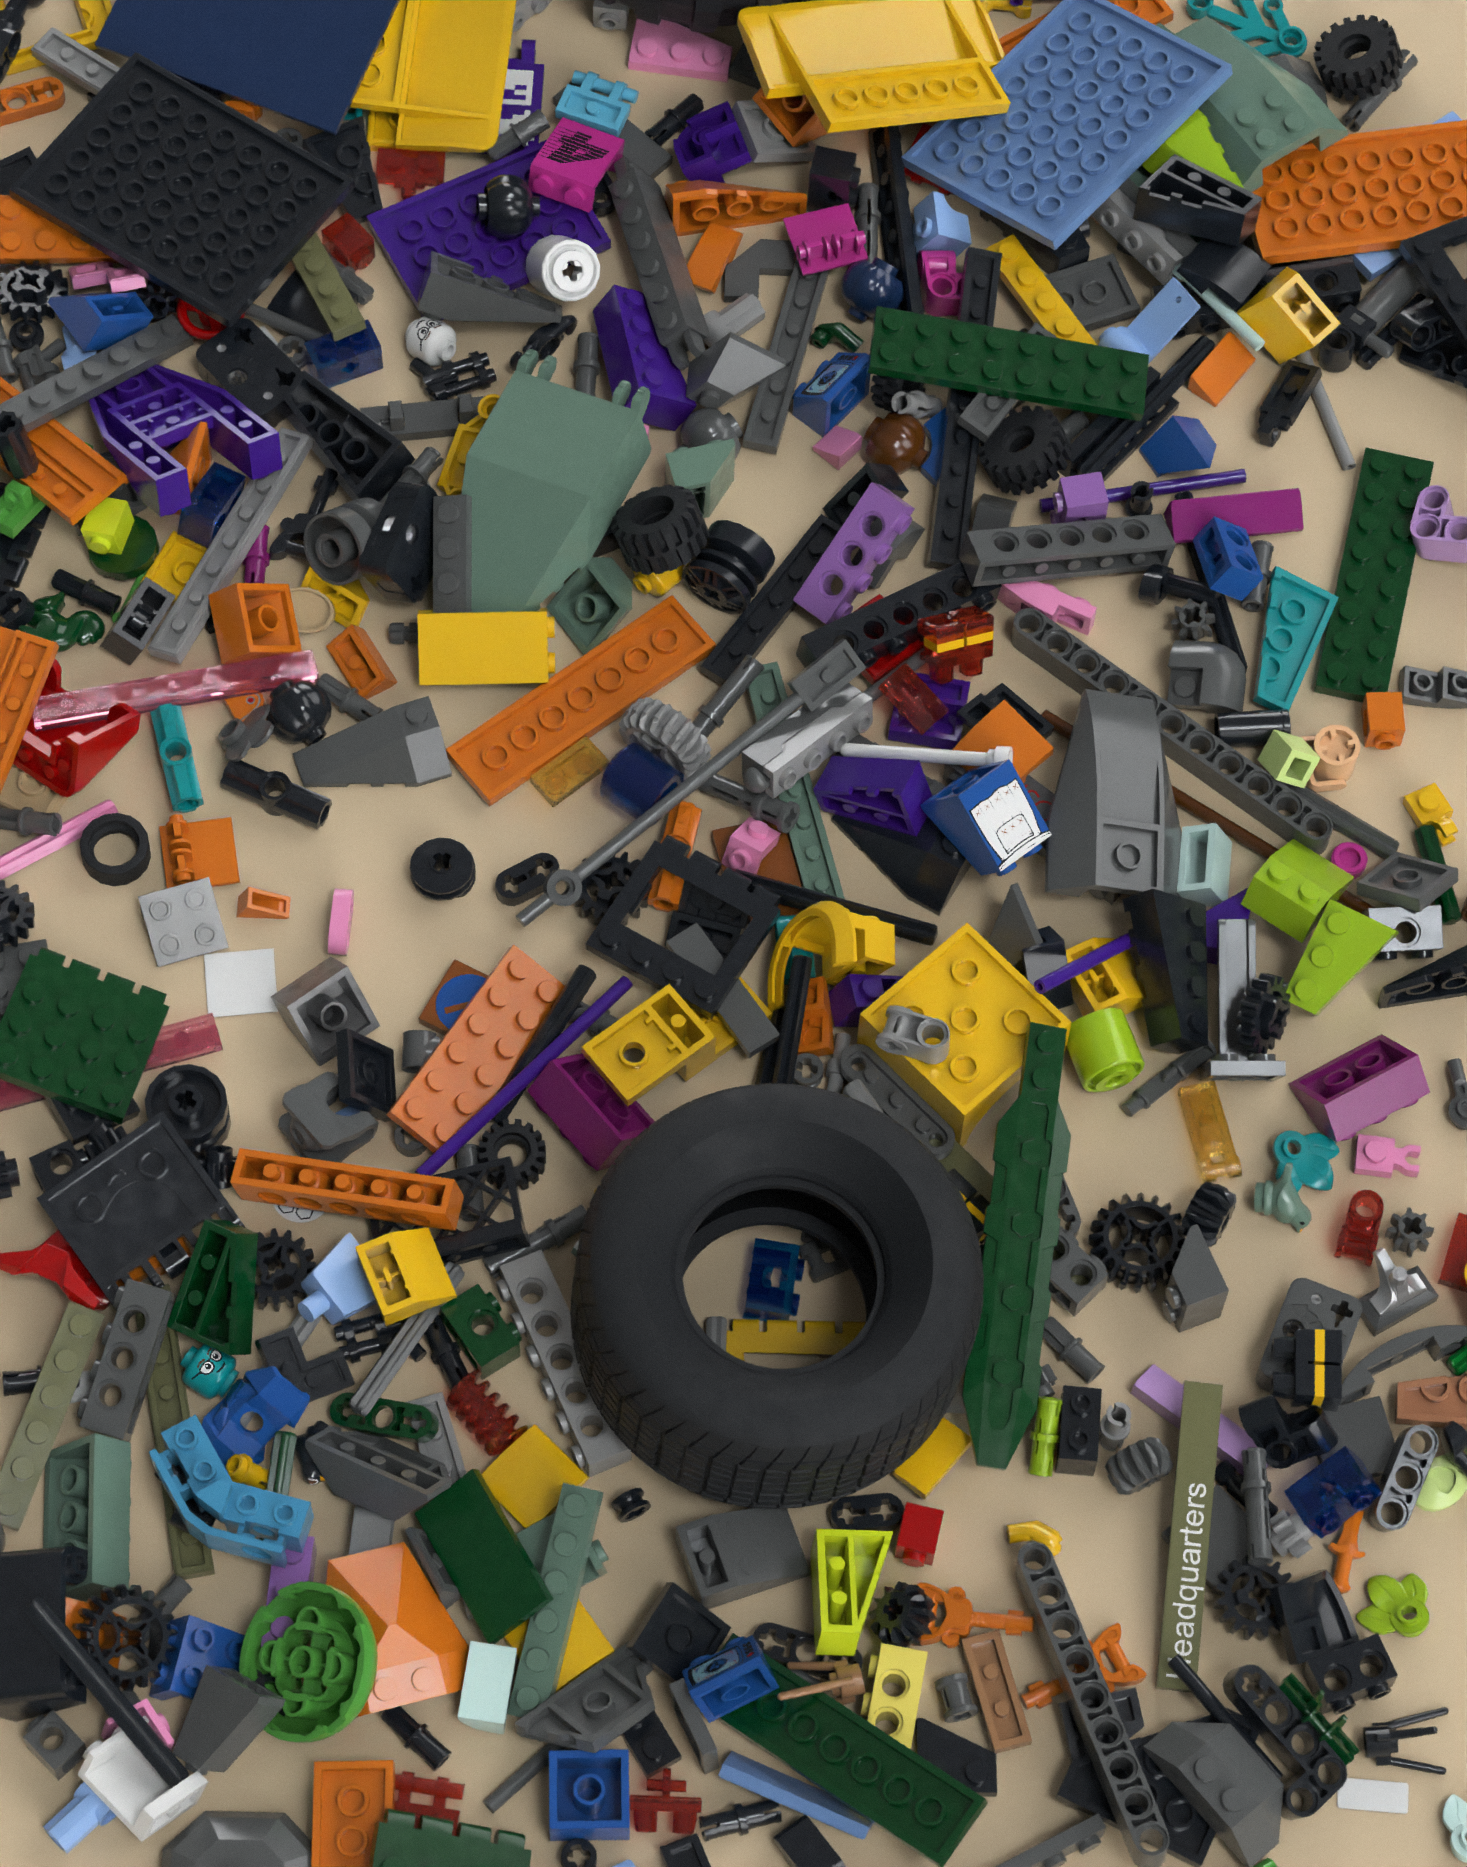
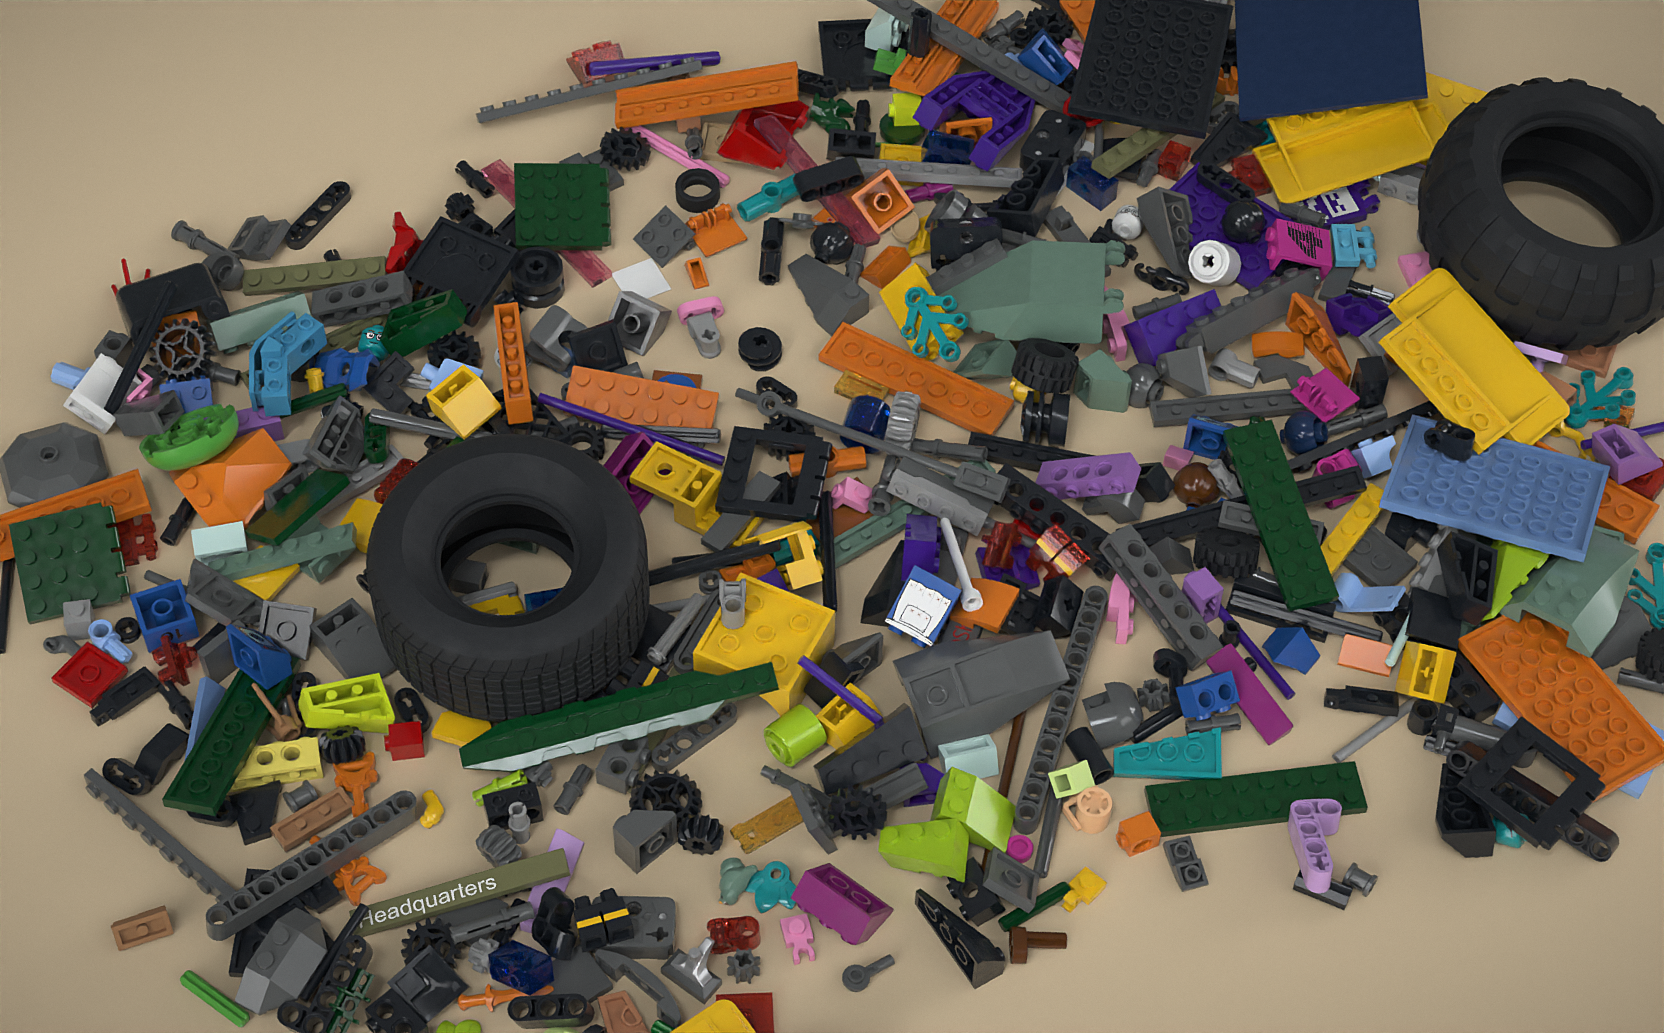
camera: 70 degrees right, 10 degrees down
(200, 668) = (828, 179): none -> black beam
(382, 929) = (705, 334): none -> light grey piece
(434, 188) = (1208, 172): none -> black beam
(524, 634) = (930, 322): none -> teal plant
(981, 128) = (1453, 439): none -> black piece
(1024, 673) = (1058, 606): none -> black brick

